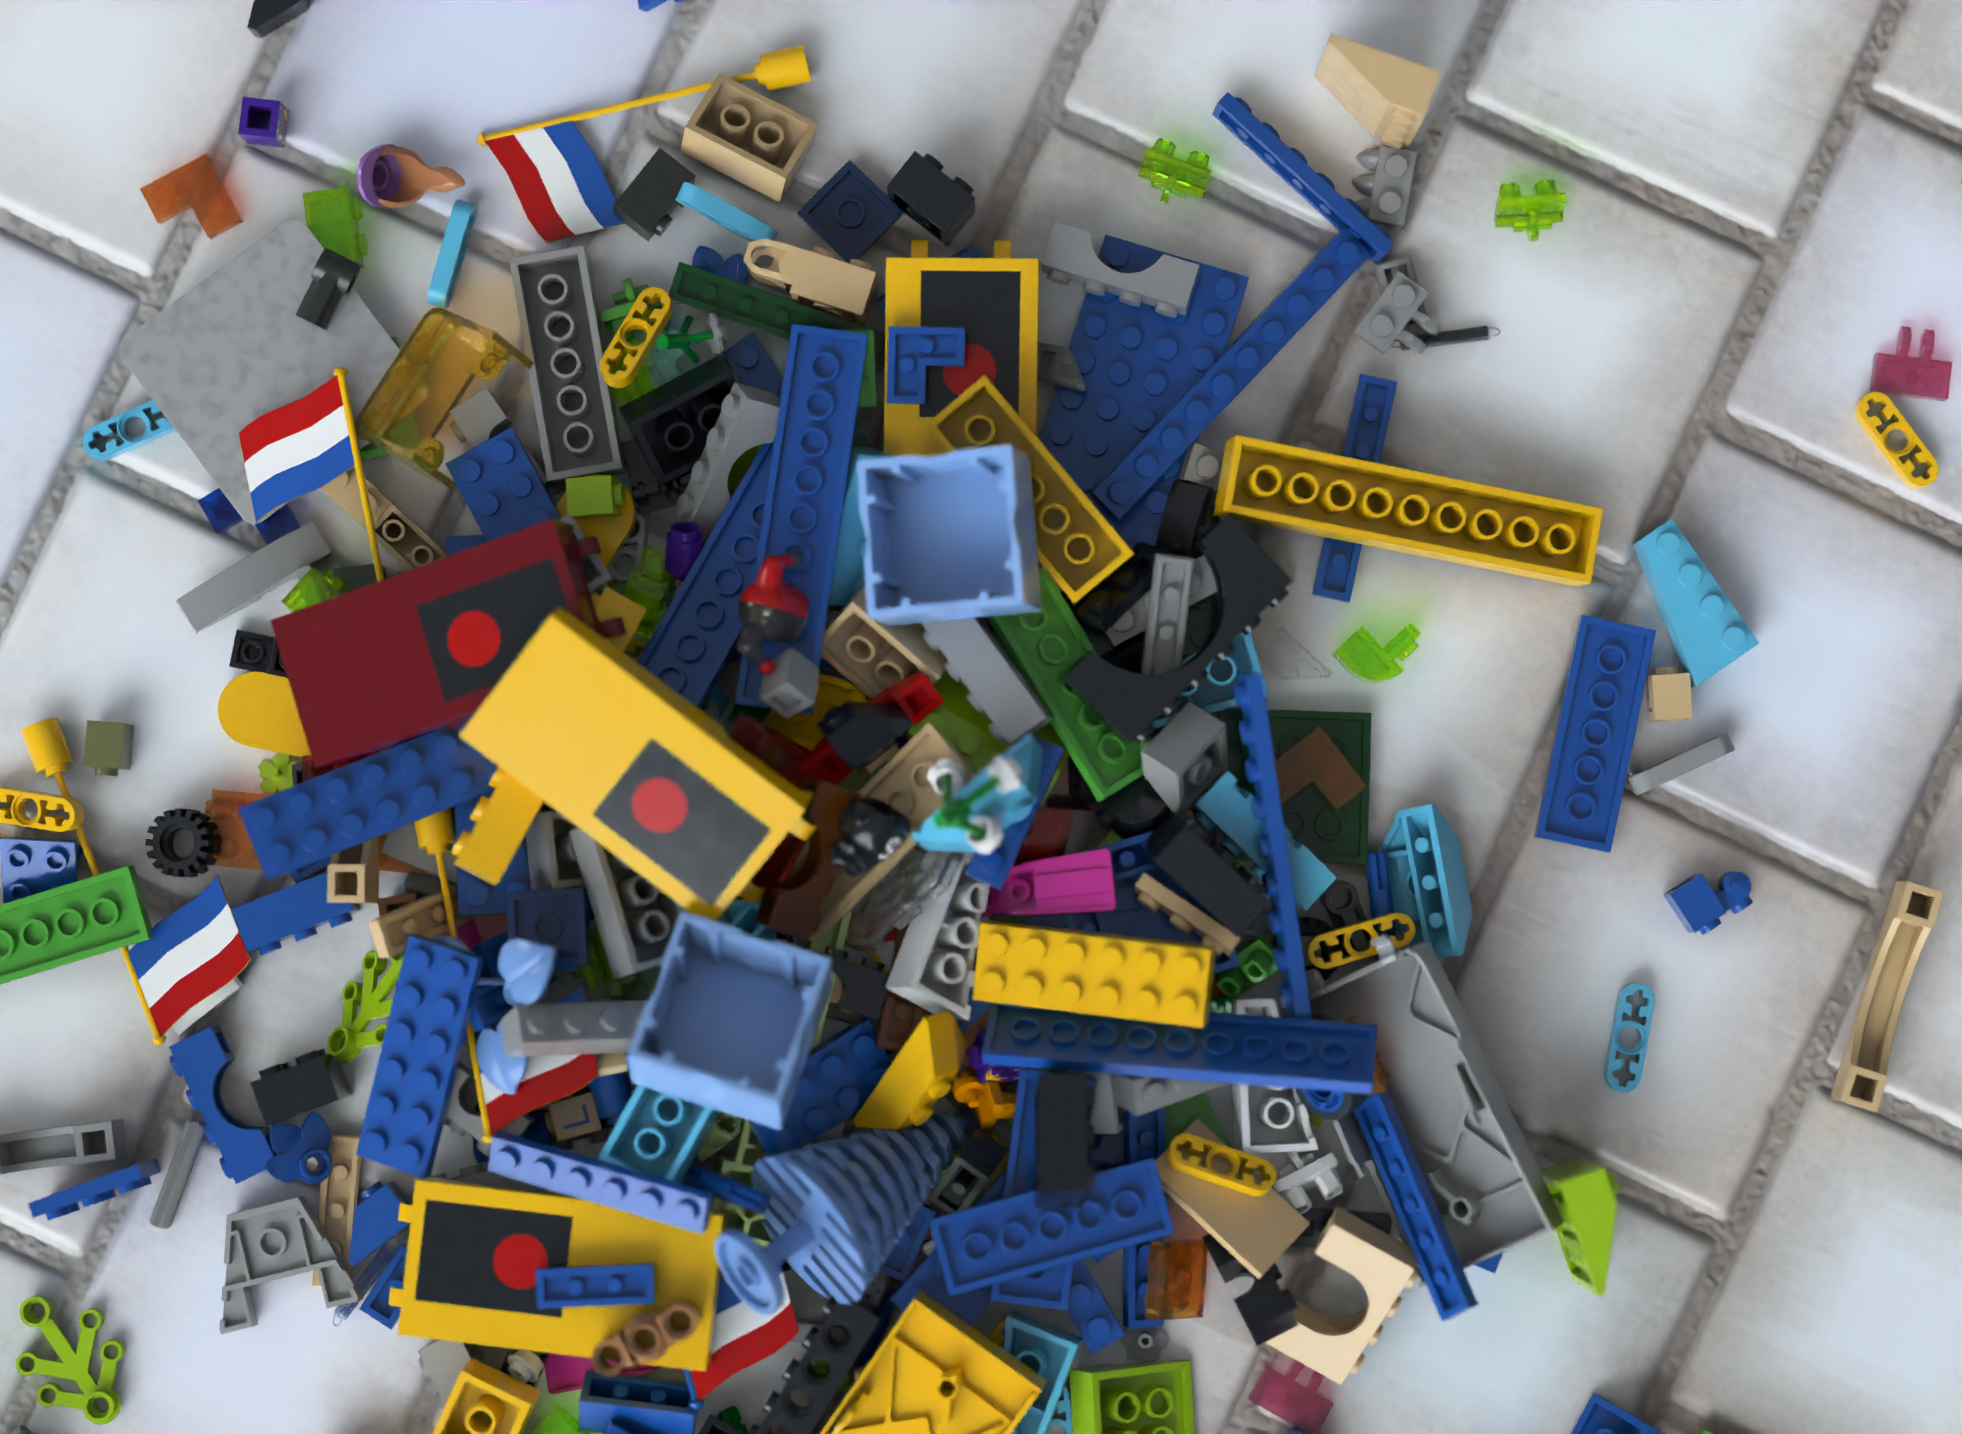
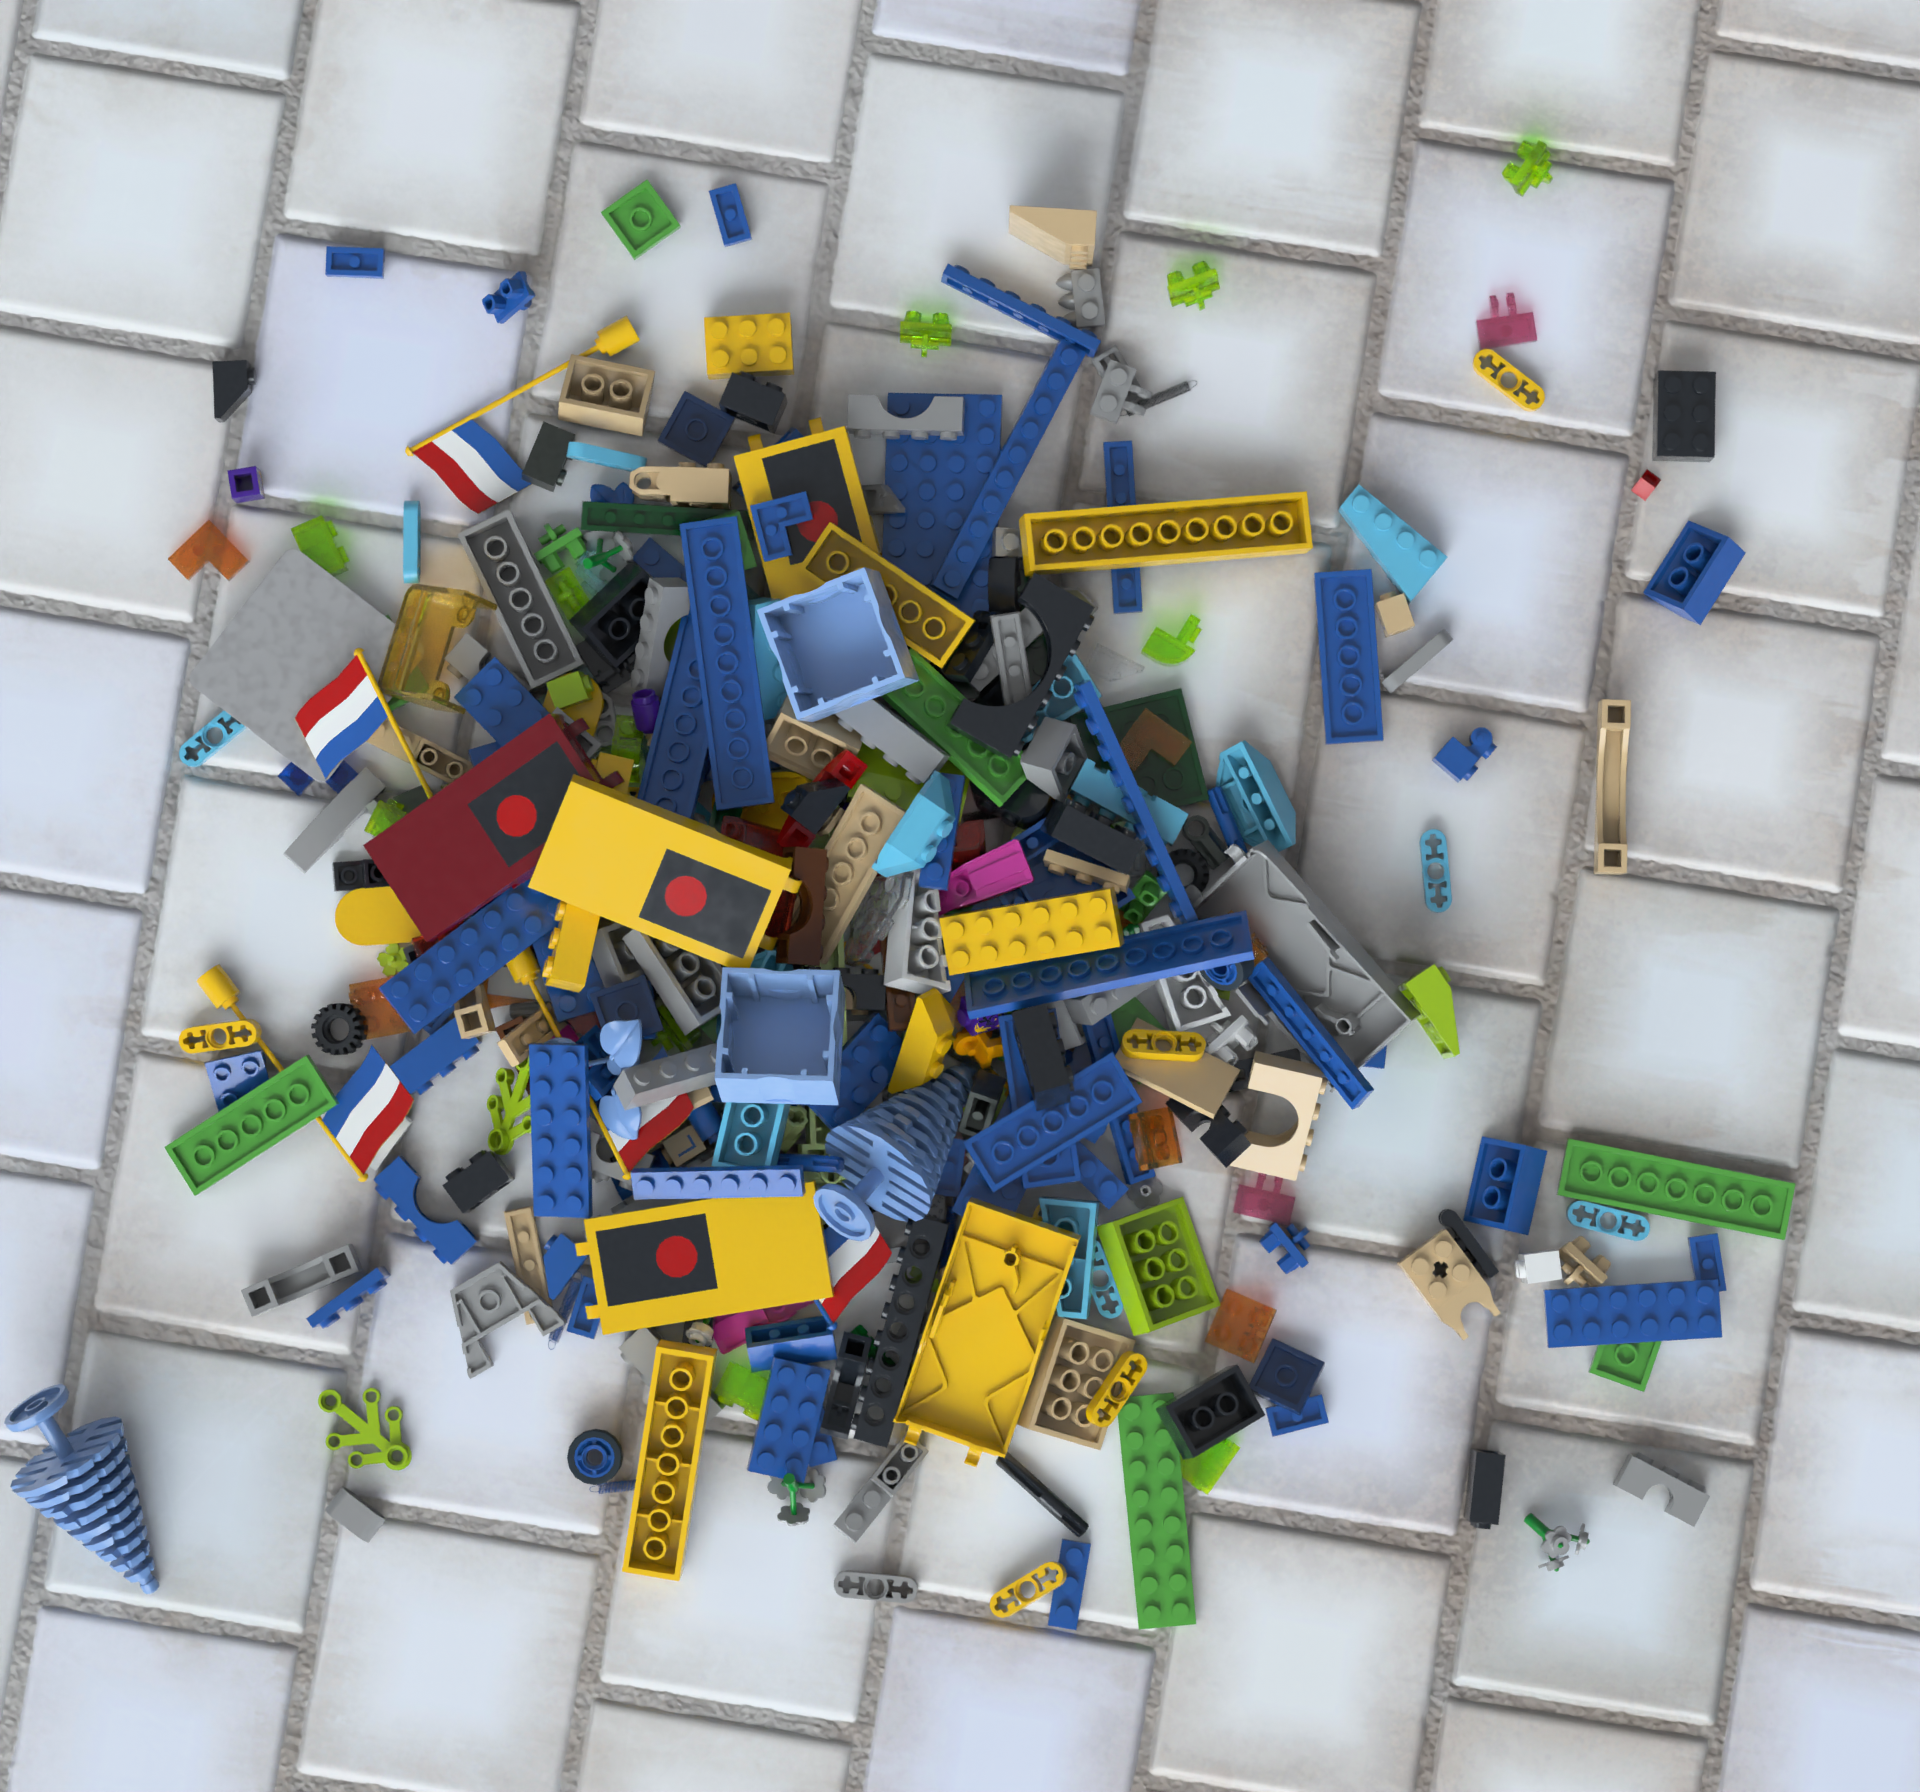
camera: 20 degrees left, 0 degrees up
(108, 747) = (263, 974): olive brick -> none
(178, 1174) = (404, 1272): light grey axle -> none
(296, 1146) = (488, 1224): blue plate -> none
(332, 280) = (331, 586): pearl dark grey piece -> none
(398, 177) = (357, 496): piece -> none
(595, 1285) = (736, 1256): blue plate -> none
(632, 1350) = (776, 1295): medium nougat piece -> none
(636, 354) = (571, 577): yellow beam -> none
(771, 610) = (724, 734): piece -> none
(791, 684) = (752, 784): light grey panel -> none
(869, 835) = (841, 876): black piece -> none
(948, 122) = (749, 344): none -> yellow brick
(948, 779) = (887, 819): white plant -> none
(1330, 939) = (1196, 860): yellow beam -> none

